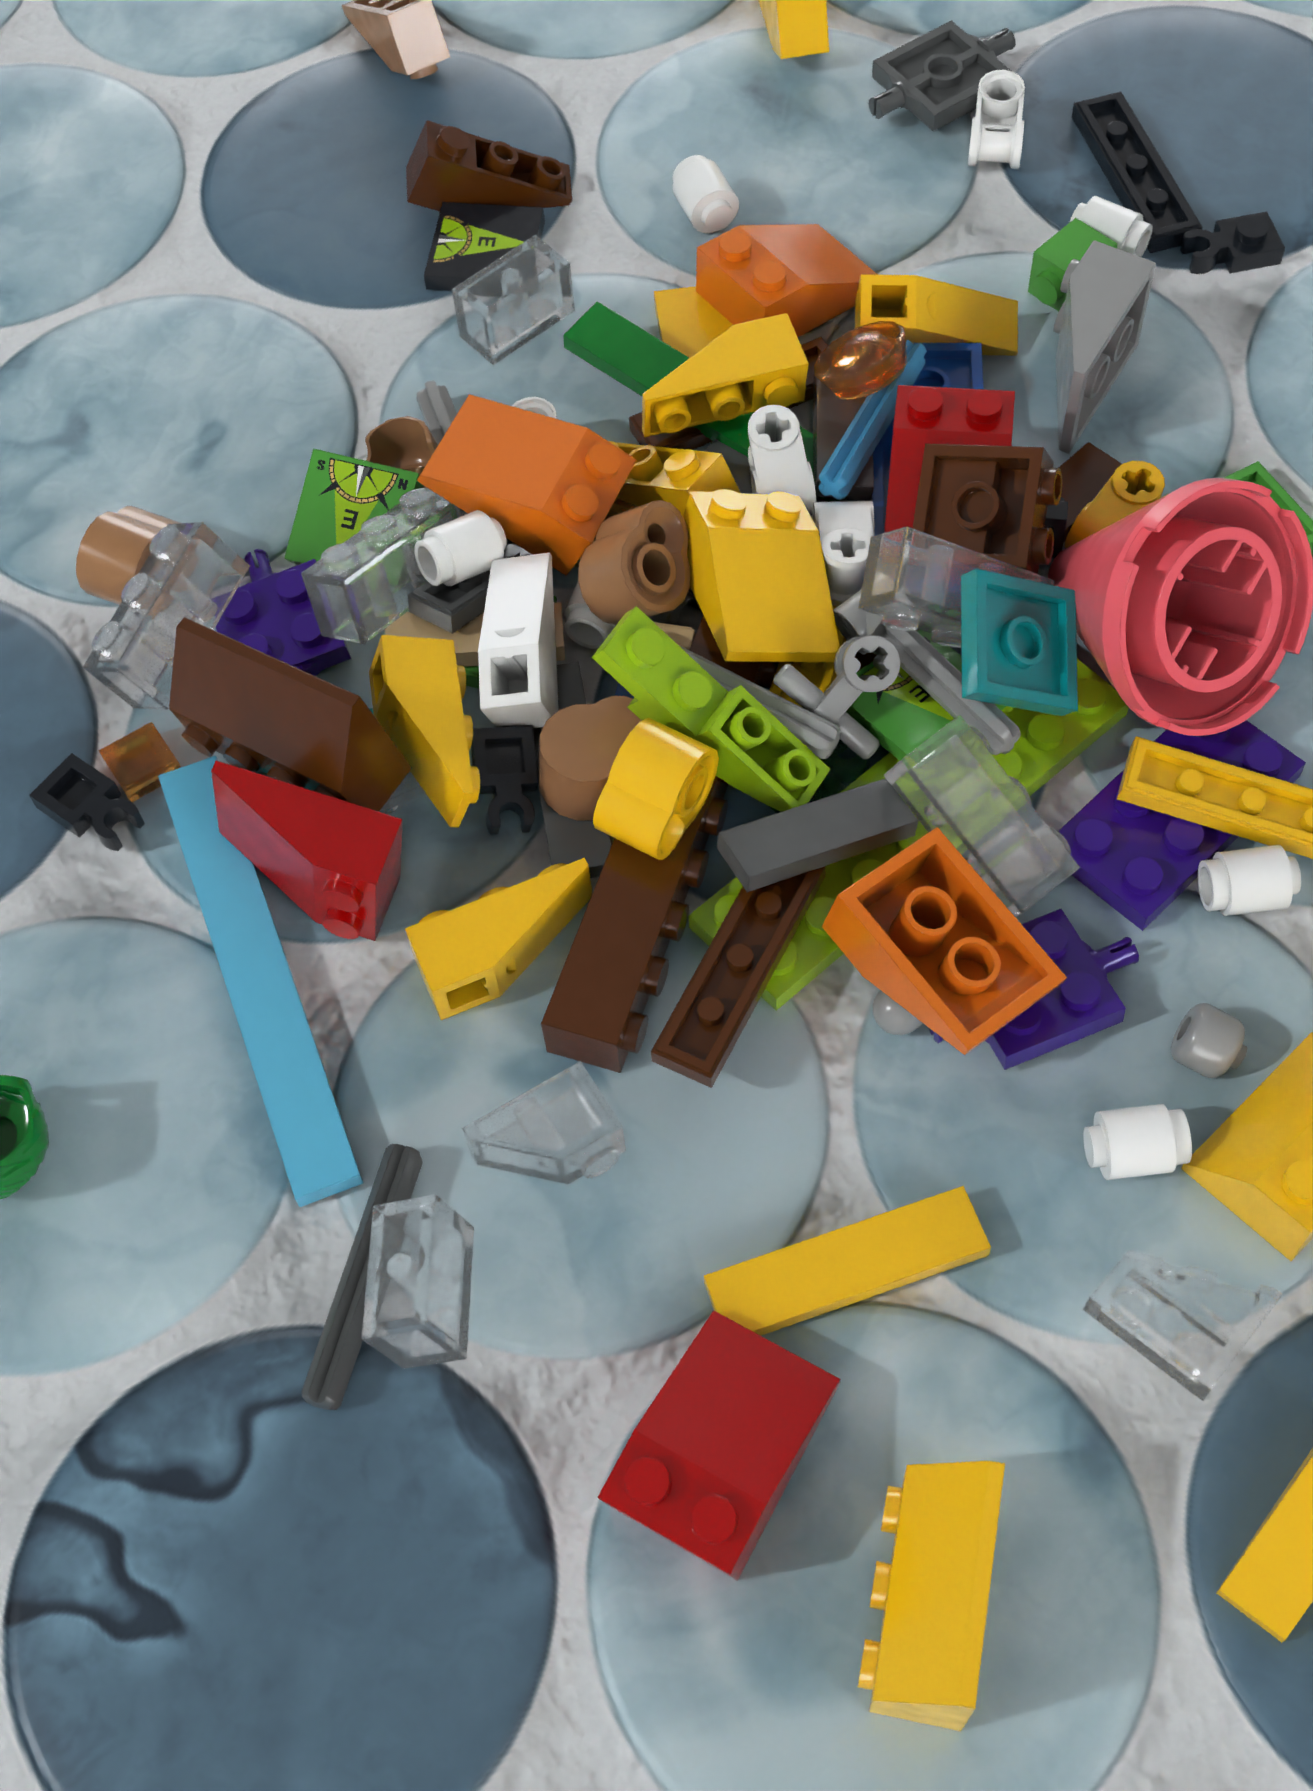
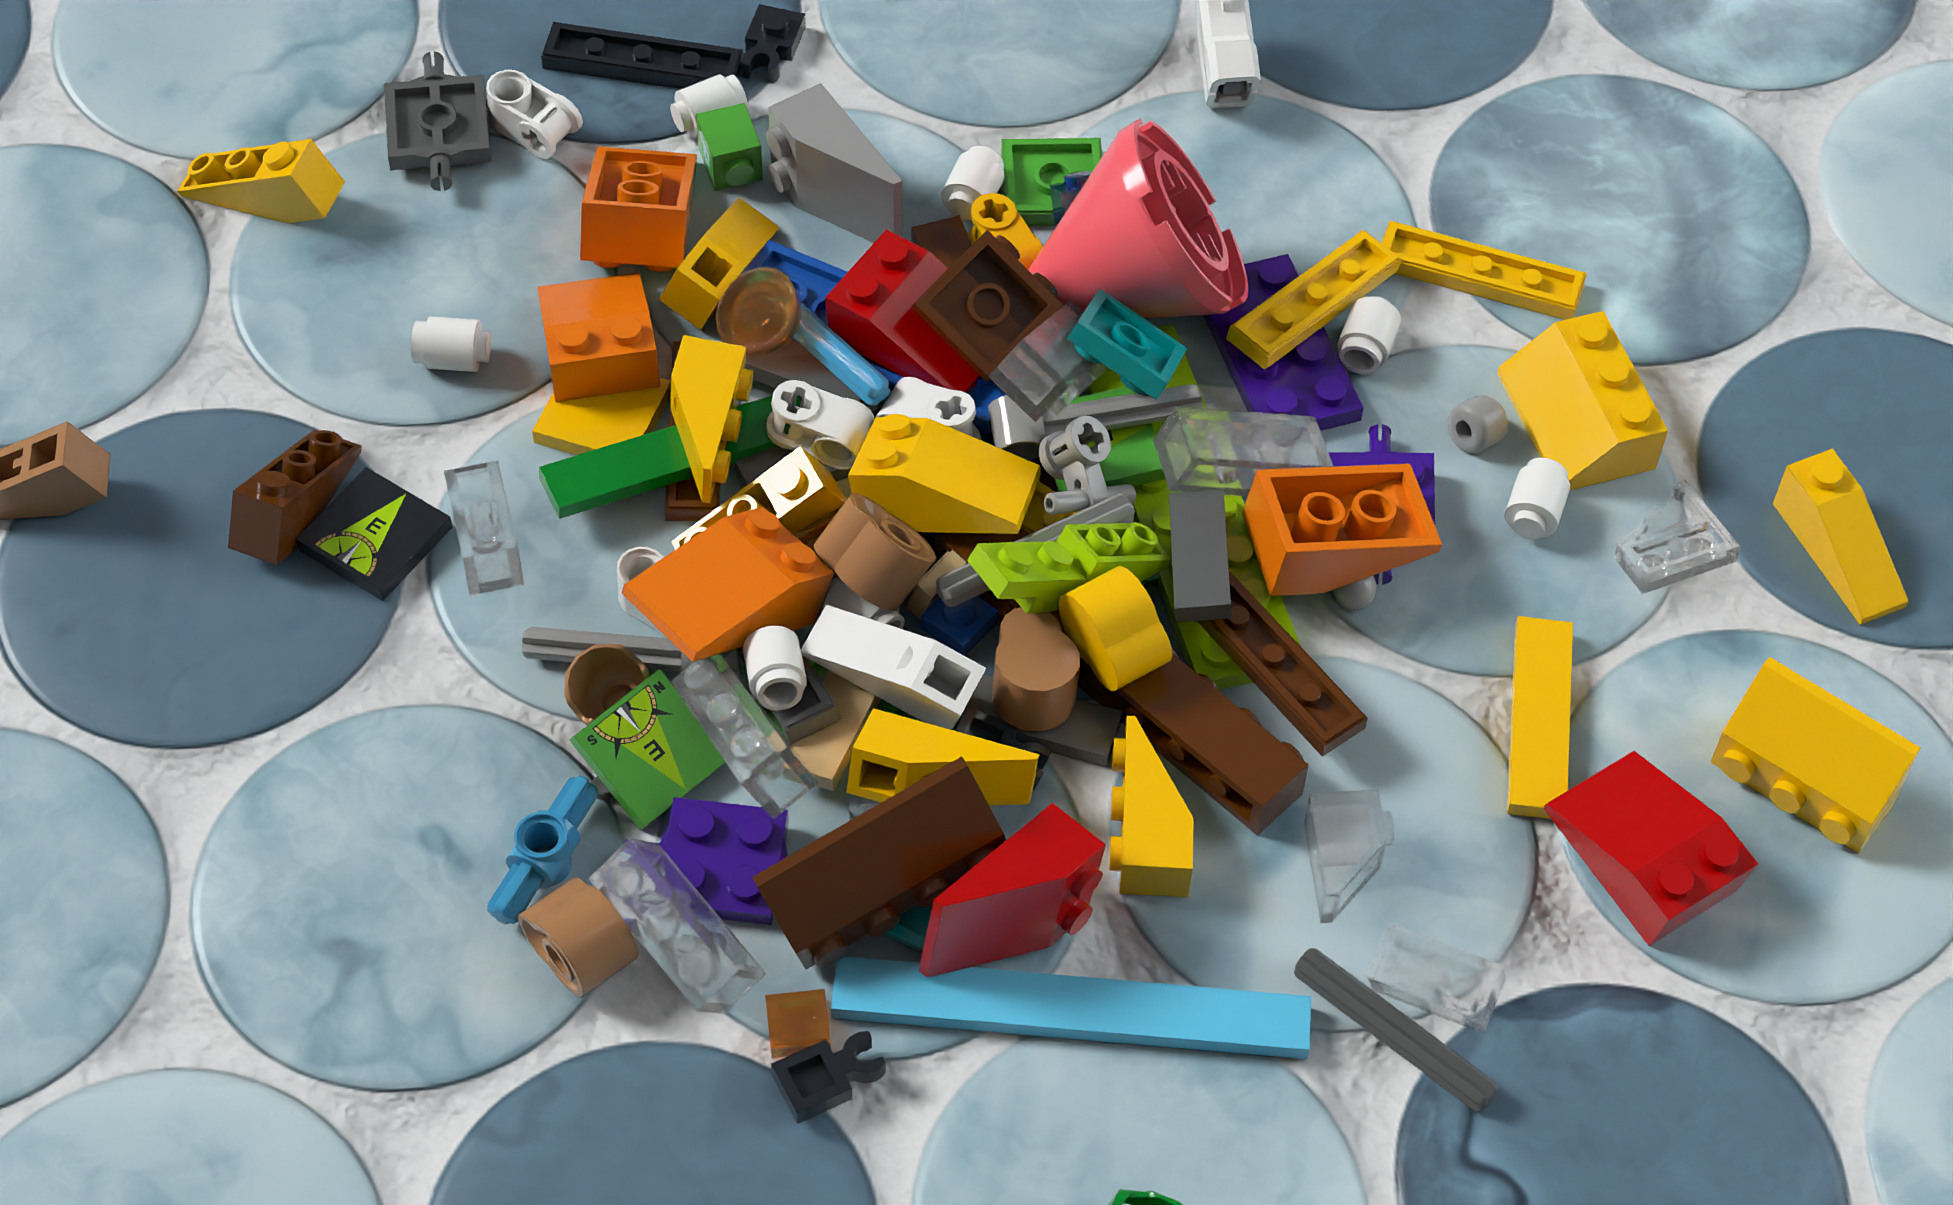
camera: 70 degrees left, 5 degrees down
(219, 497) = (542, 870): none -> dark azure axle
(949, 232) = (637, 208): none -> orange slope
(1182, 457) = (974, 174): none -> white brick

